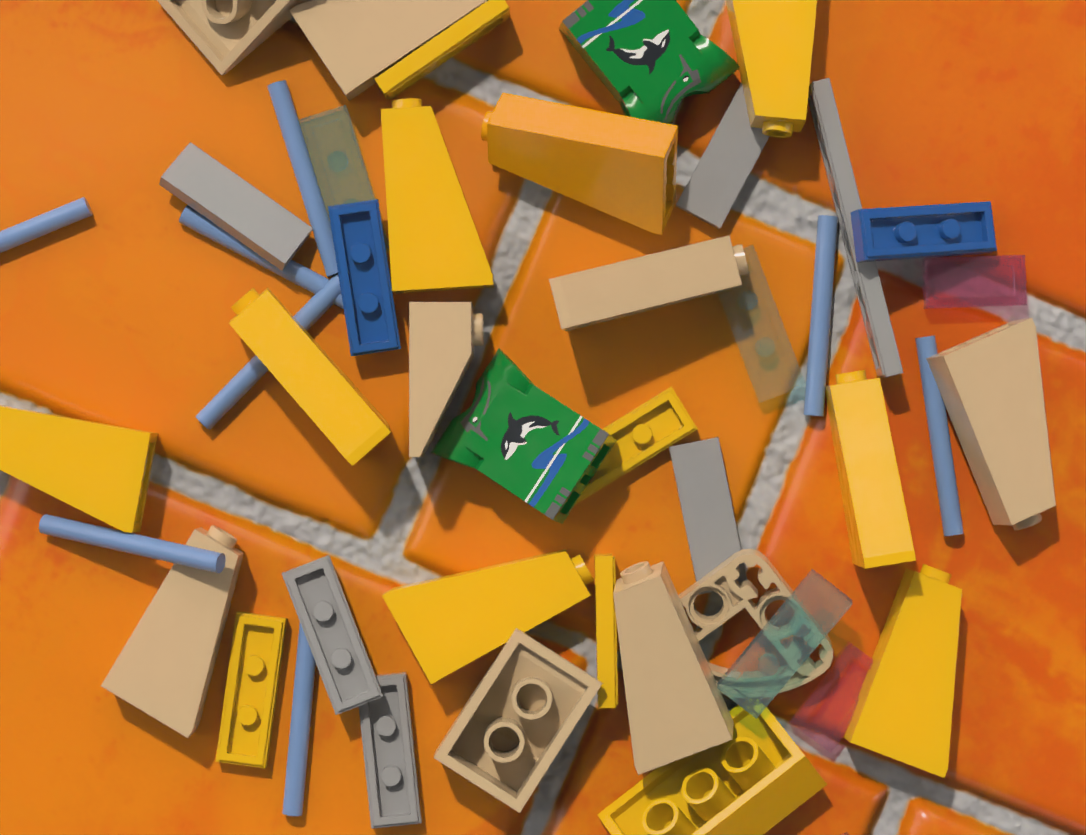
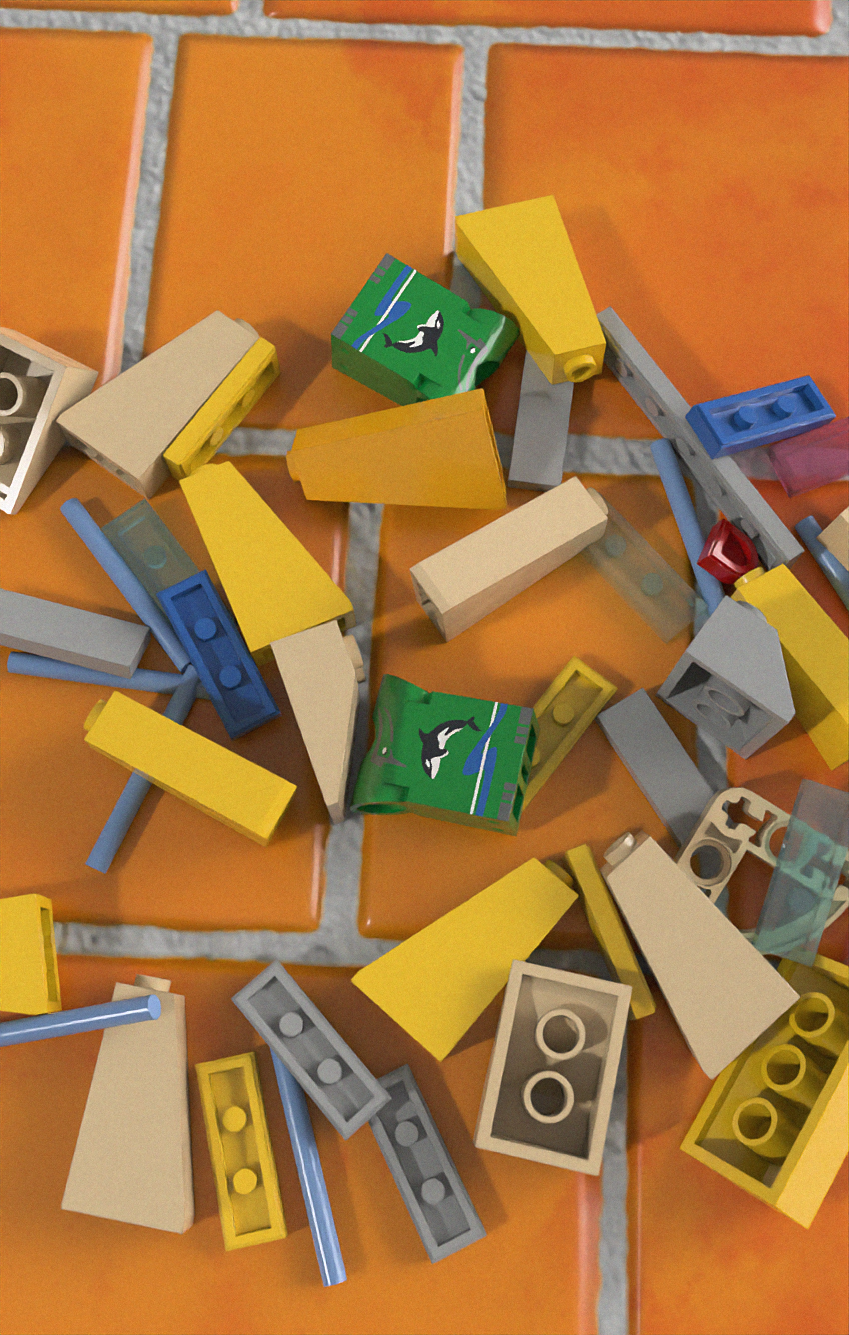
camera: 20 degrees left, 15 degrees down
(784, 465) = (733, 679): none -> light grey slope
(843, 344) = (728, 553): none -> red tile

